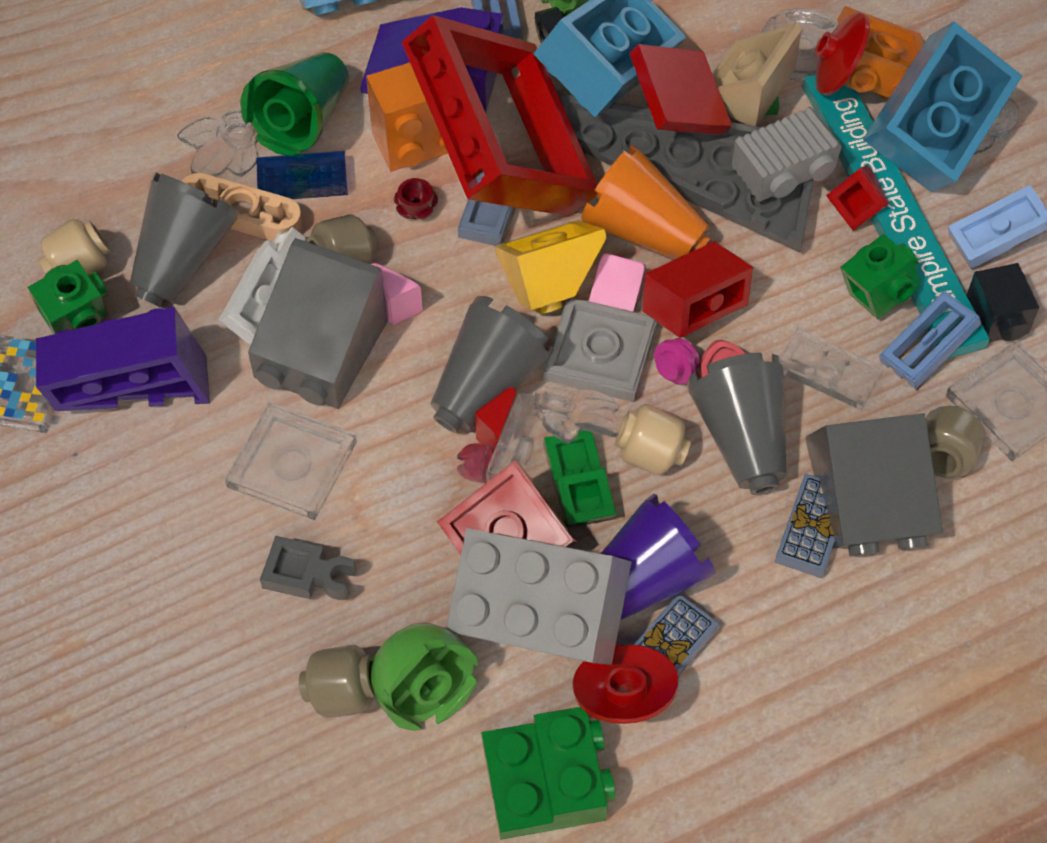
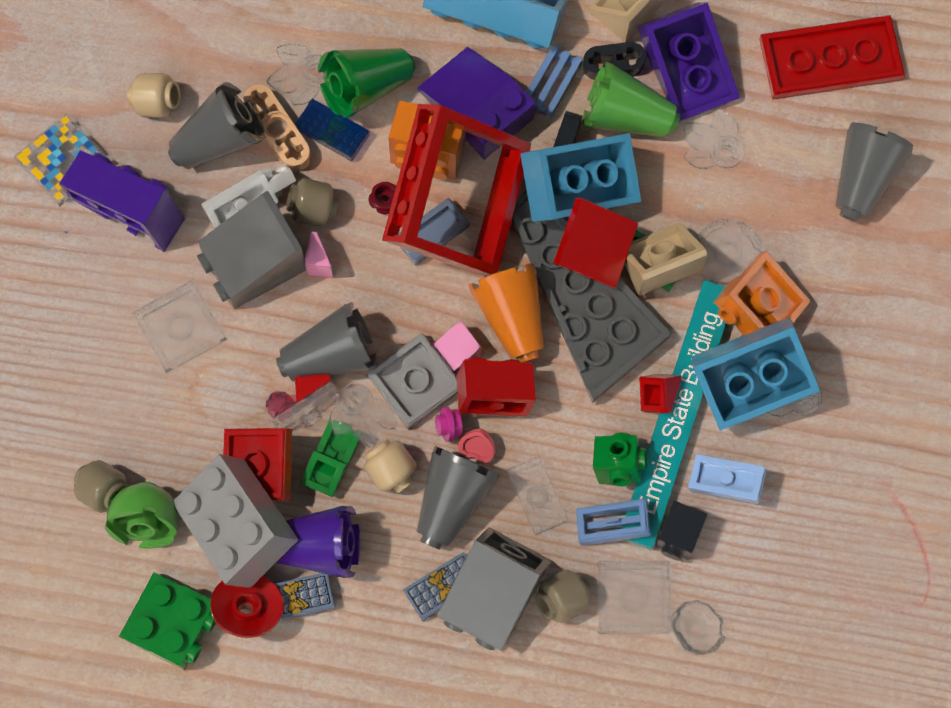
camera: 35 degrees right, 15 degrees up
(69, 297) = (125, 129): green brick -> none
(300, 566) = (131, 400): dark grey plate -> none
(550, 263) = (427, 301): yellow slope -> none
(786, 155) = (628, 335): light grey brick -> none
(840, 52) = (725, 286): red dish -> none

